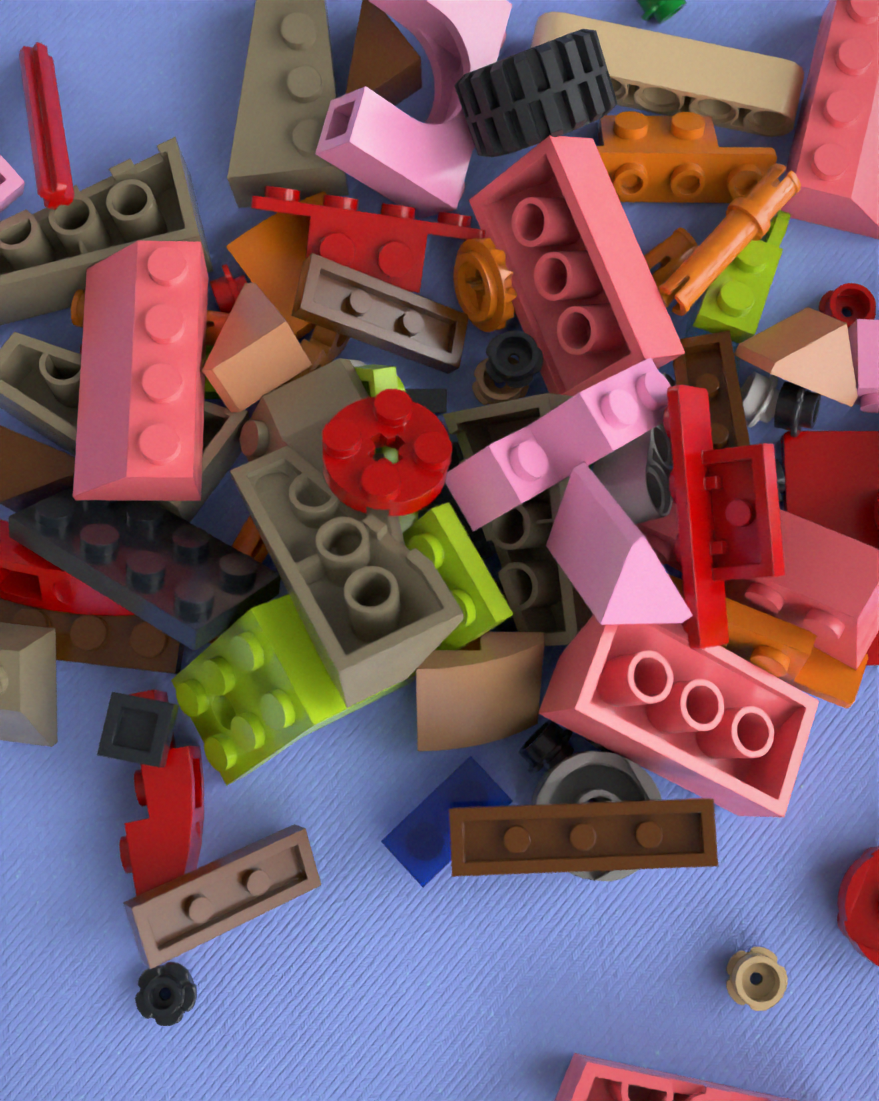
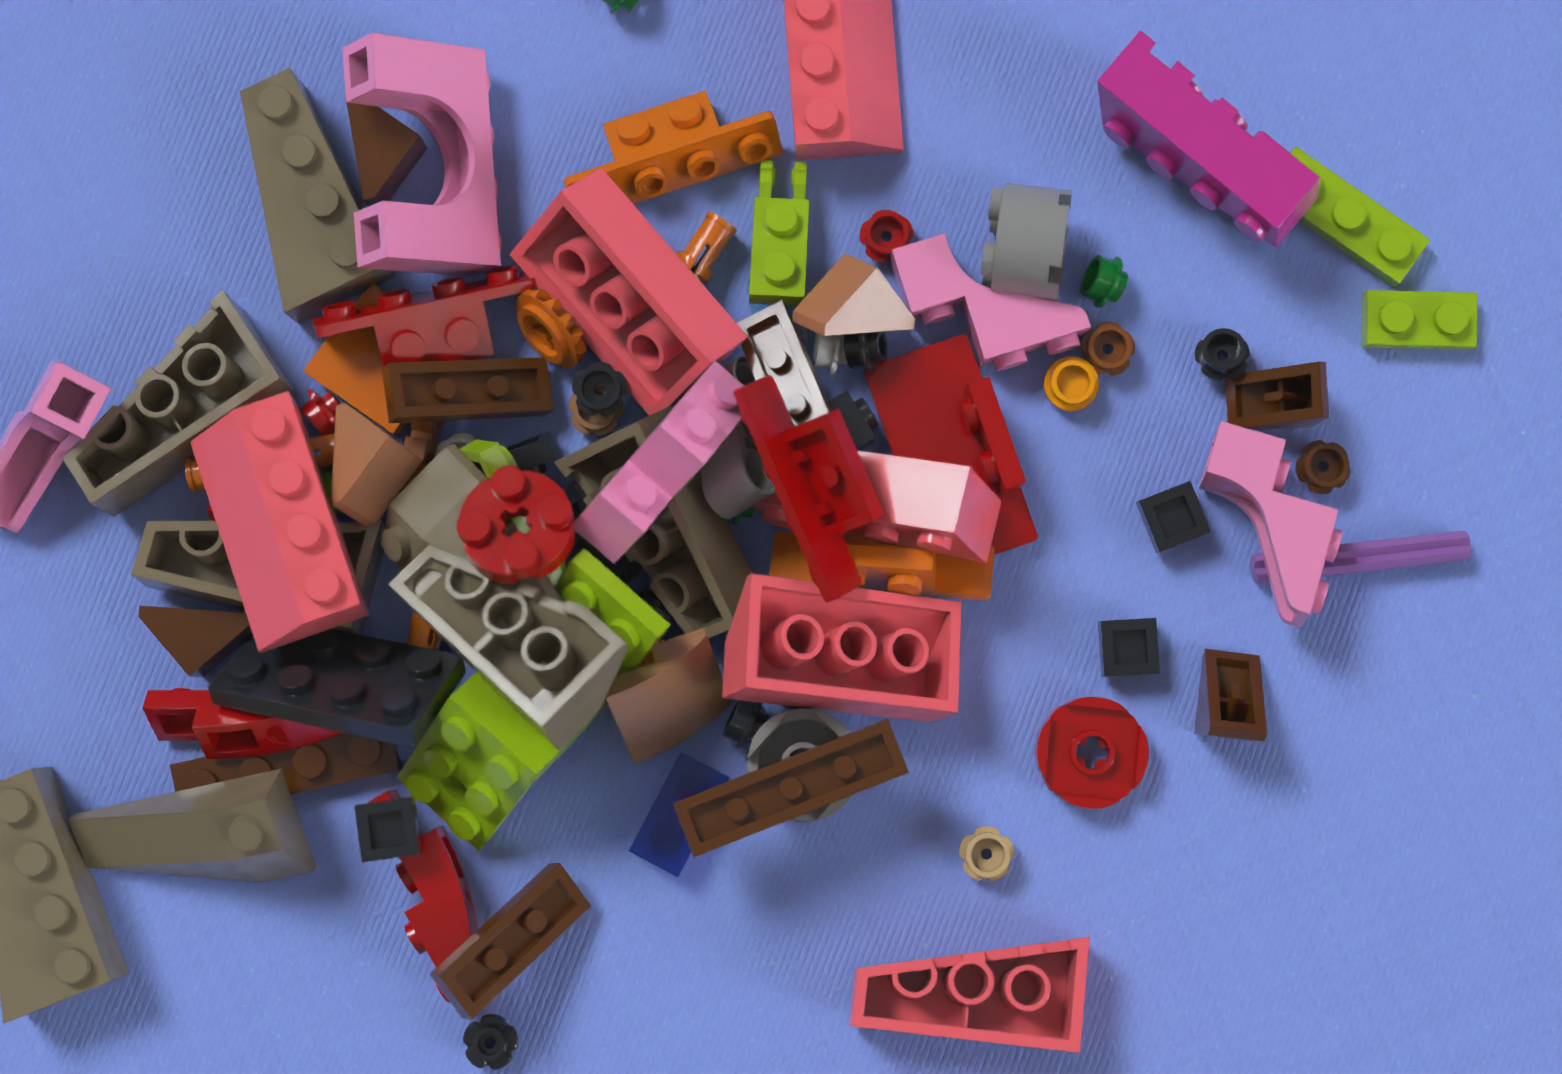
camera: 20 degrees left, 5 degrees up
(46, 127) = (97, 315): red axle -> none
(536, 94) = (536, 145): black tyre -> none
(610, 557) = (735, 551): bright pink slope -> none
(689, 75) = (648, 66): tan beam -> none
(745, 221) = (762, 197): orange pin -> none

